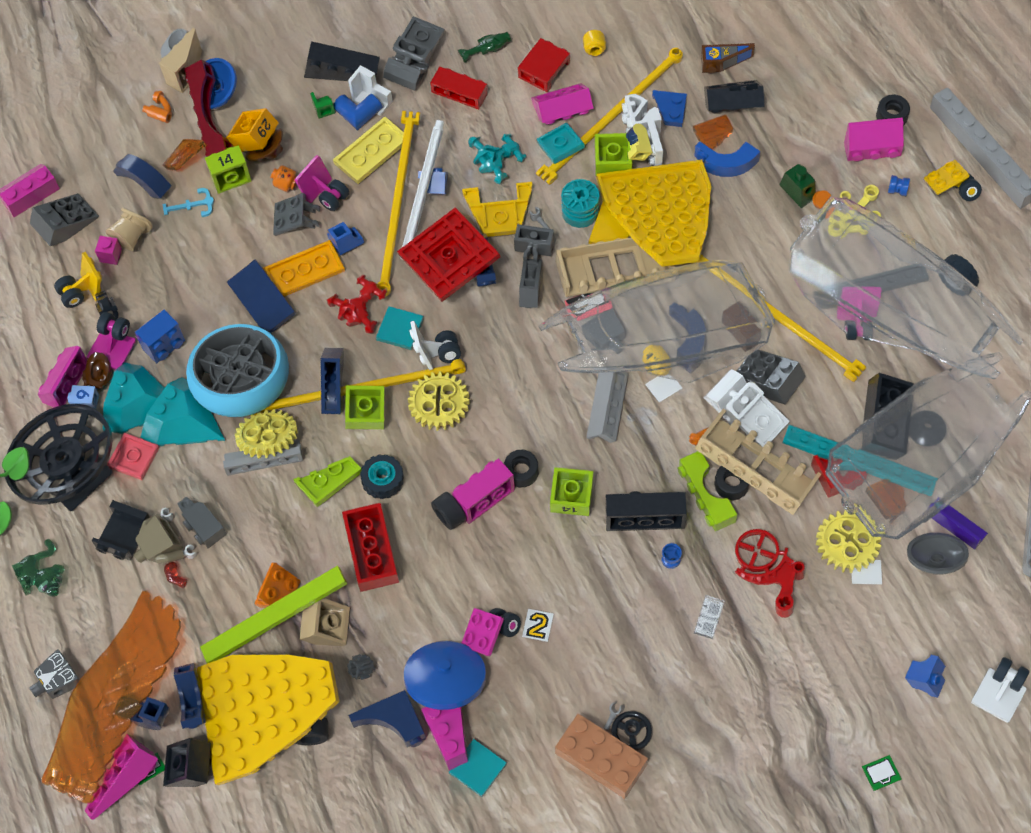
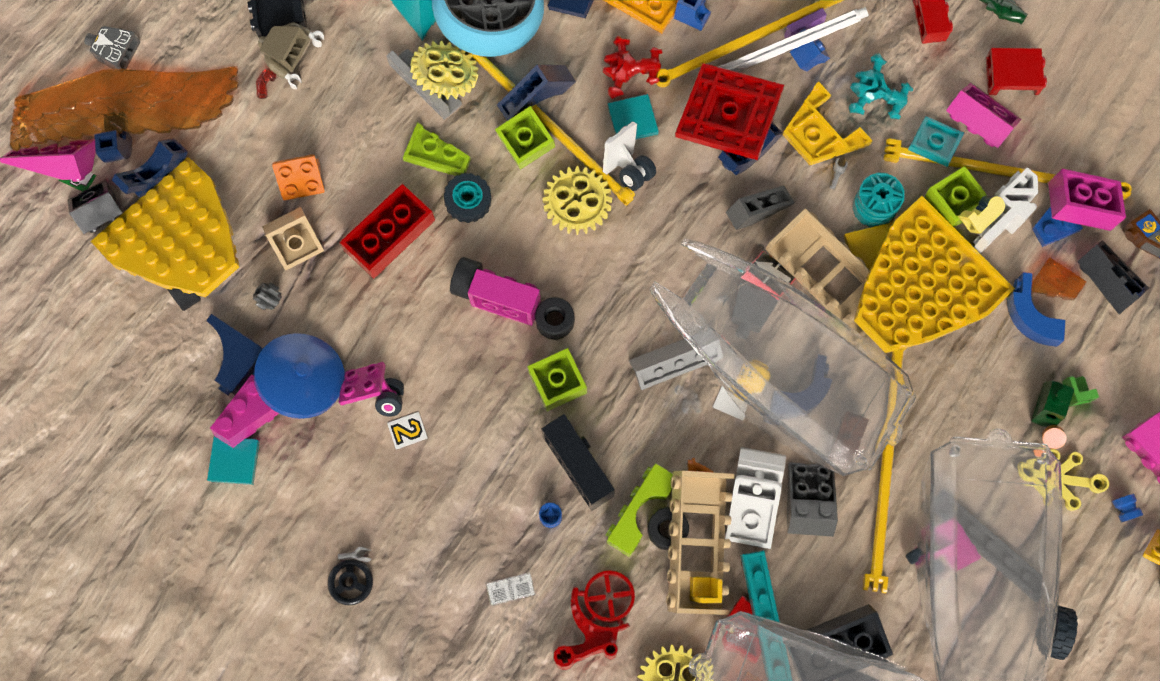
camera: 55 degrees right, 10 degrees up
(202, 522) = (326, 72): dark grey hinge -> none
(273, 615) = (269, 189): lime tile -> none
(413, 166) = (807, 22): none -> medium lavender plate
(534, 241) = (805, 182): dark grey brick -> none
(594, 42) = (1076, 103): yellow head -> none
(601, 756) = (304, 568): nougat brick -> none
(670, 77) = (1086, 199): none -> dark pink brick
(794, 477) = (706, 589): none -> yellow panel
(806, 162) = (1081, 391): none -> bright green panel

